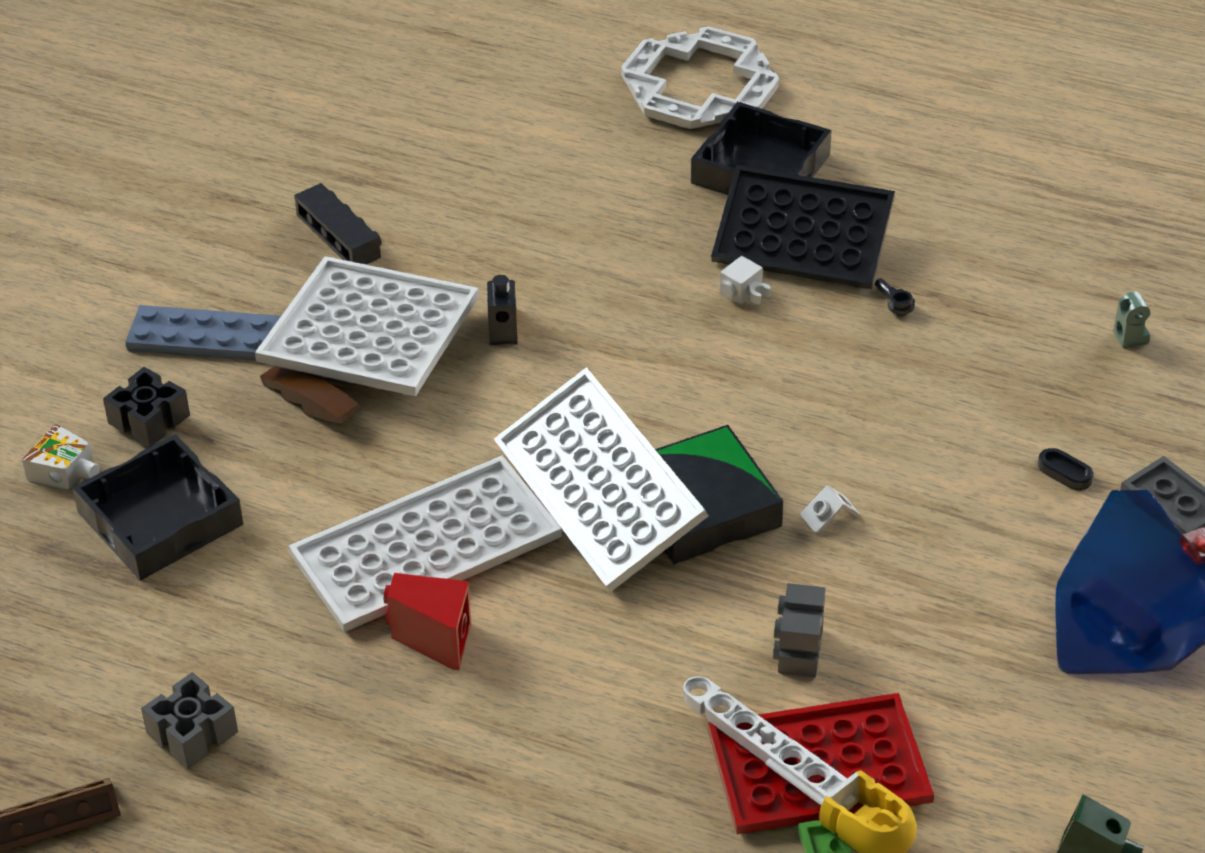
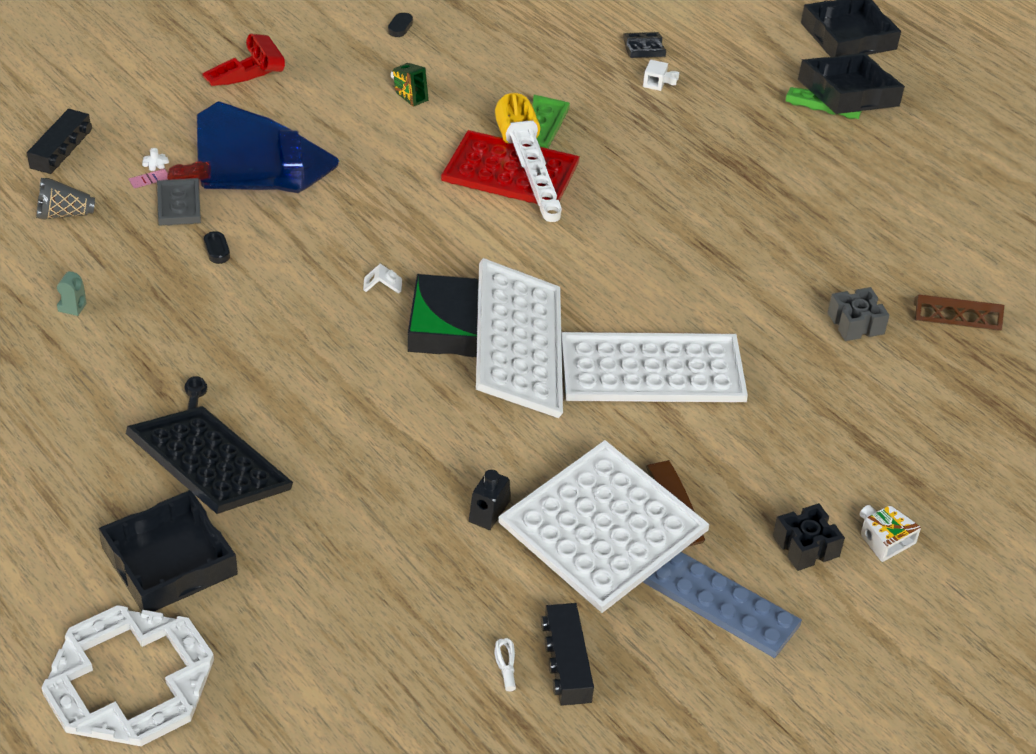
camera: 155 degrees left, 0 degrees up
(158, 507) = (827, 461): black tile -> none
(386, 201) = (507, 671): none -> white piece
(430, 616) = (681, 303): red slope -> none
(743, 281) = (291, 450): white brick -> none
(799, 629) = (469, 211): dark grey brick -> none

